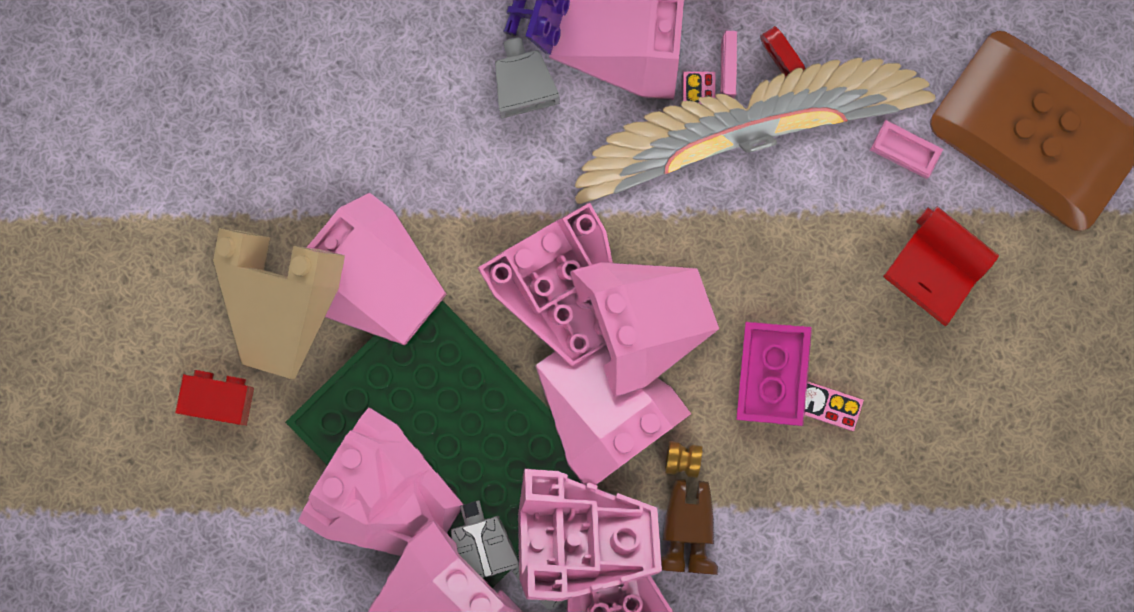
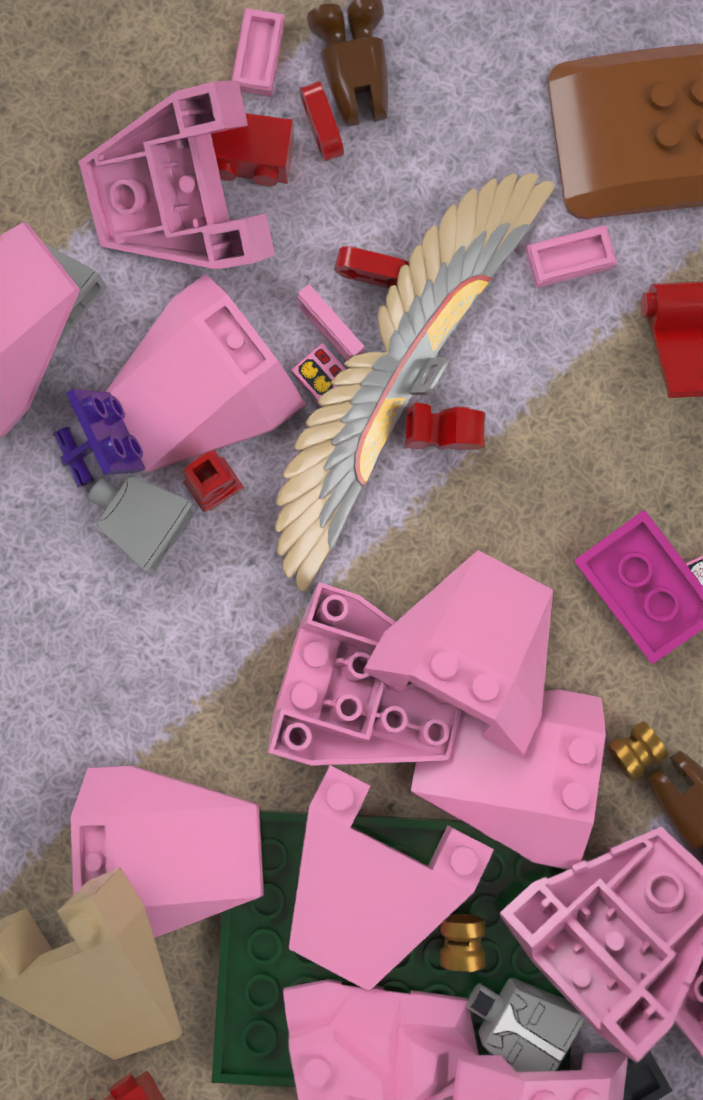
camera: 45 degrees left, 0 degrees up
(457, 396) = (364, 901): none -> bright pink wedge
(484, 475) = (462, 943): none -> pearl gold wheel
(581, 93) = (211, 480): none -> red leg
(742, 184) = (450, 428): none -> red leg

